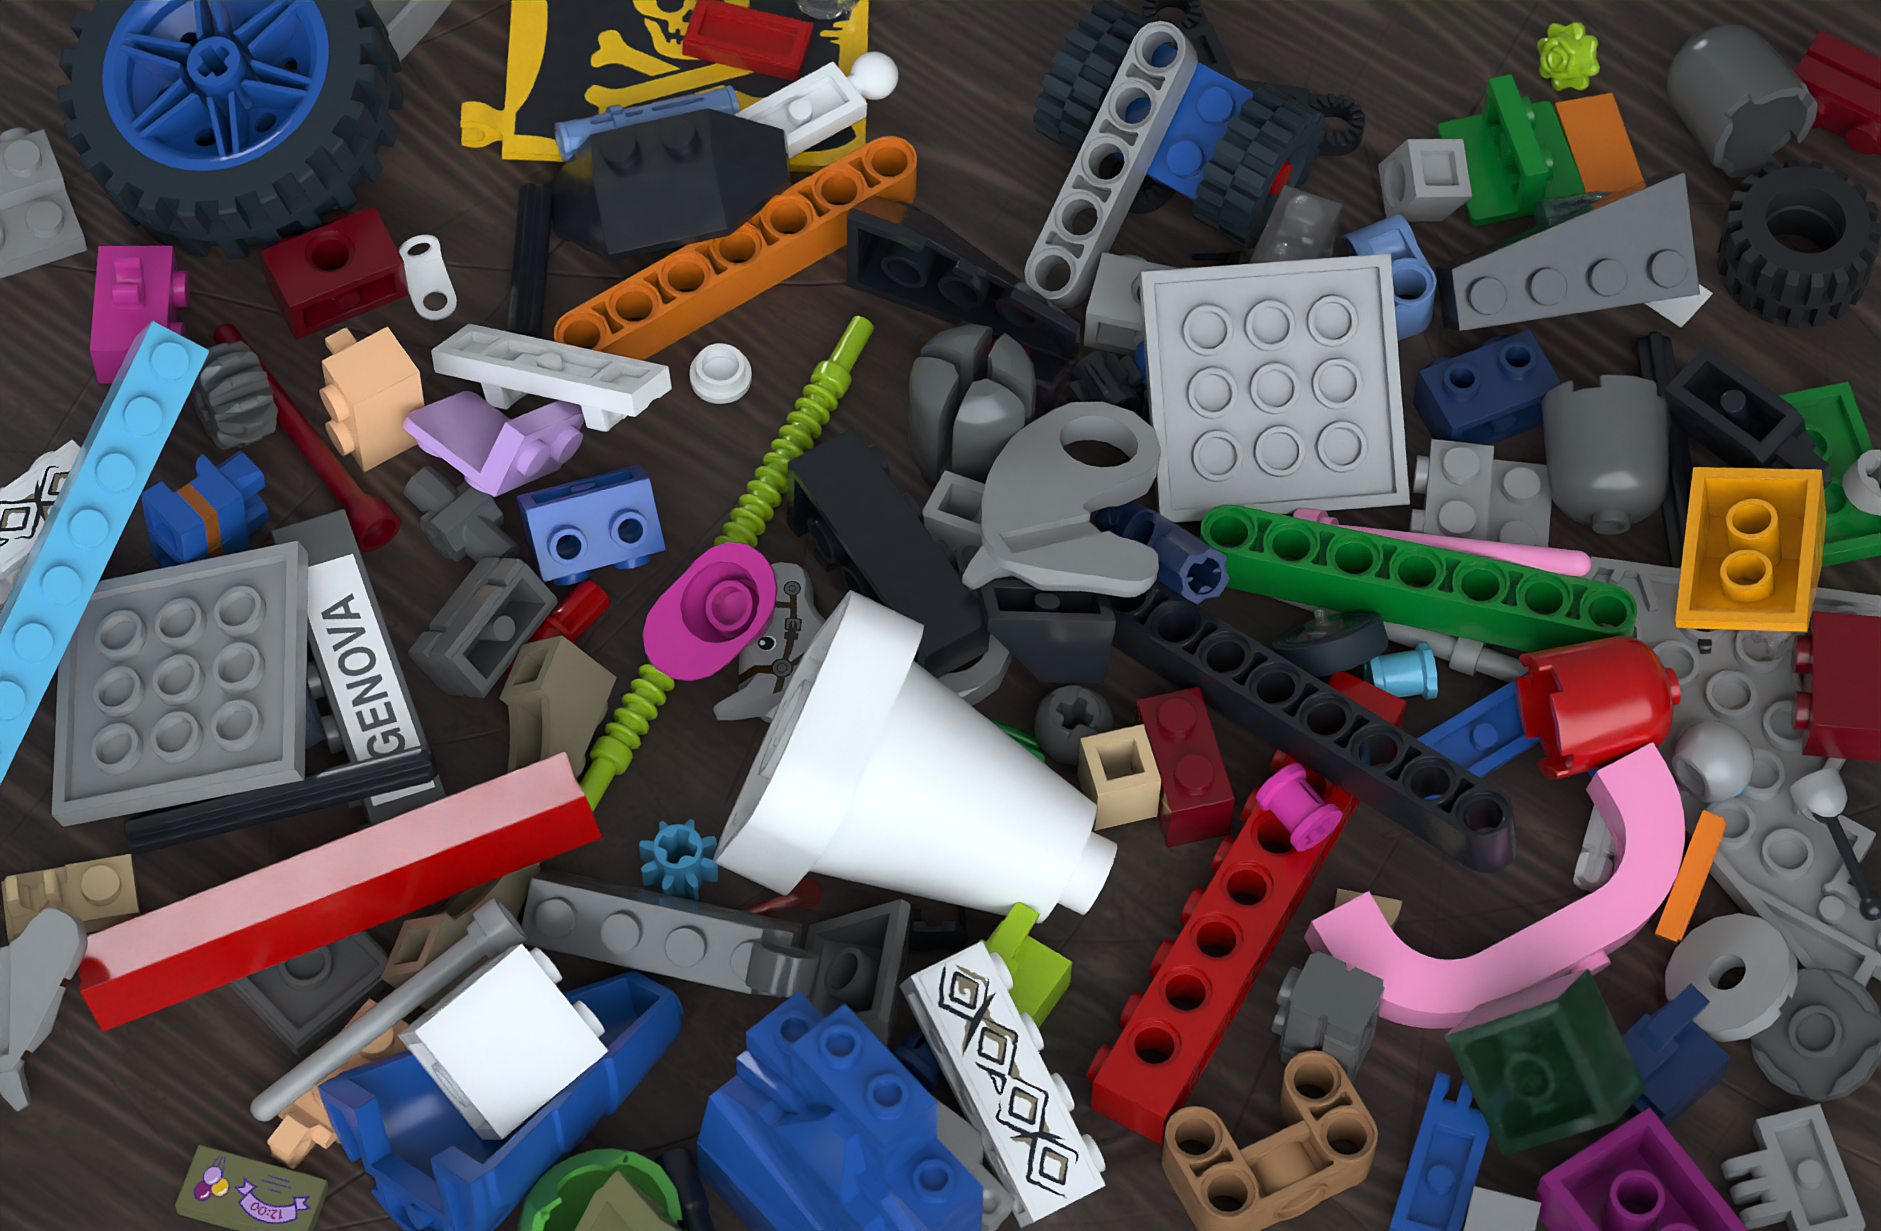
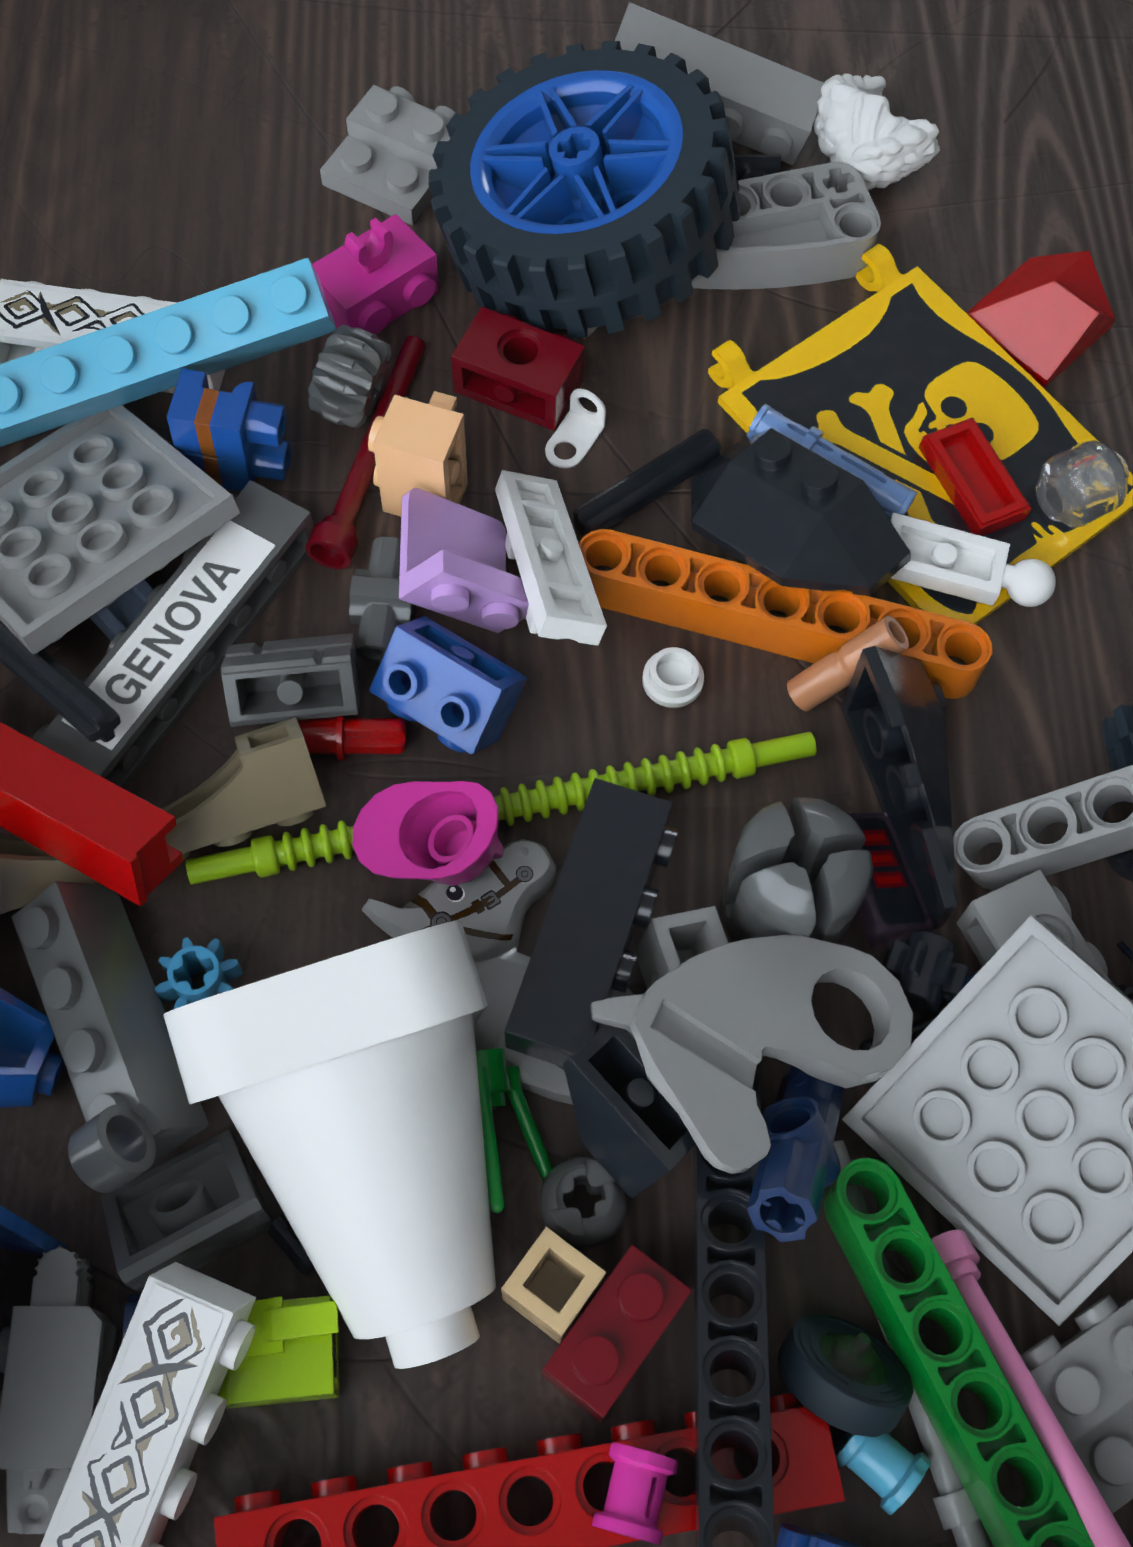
camera: 50 degrees right, 5 degrees up
(829, 252) = (836, 669): none -> nougat piece

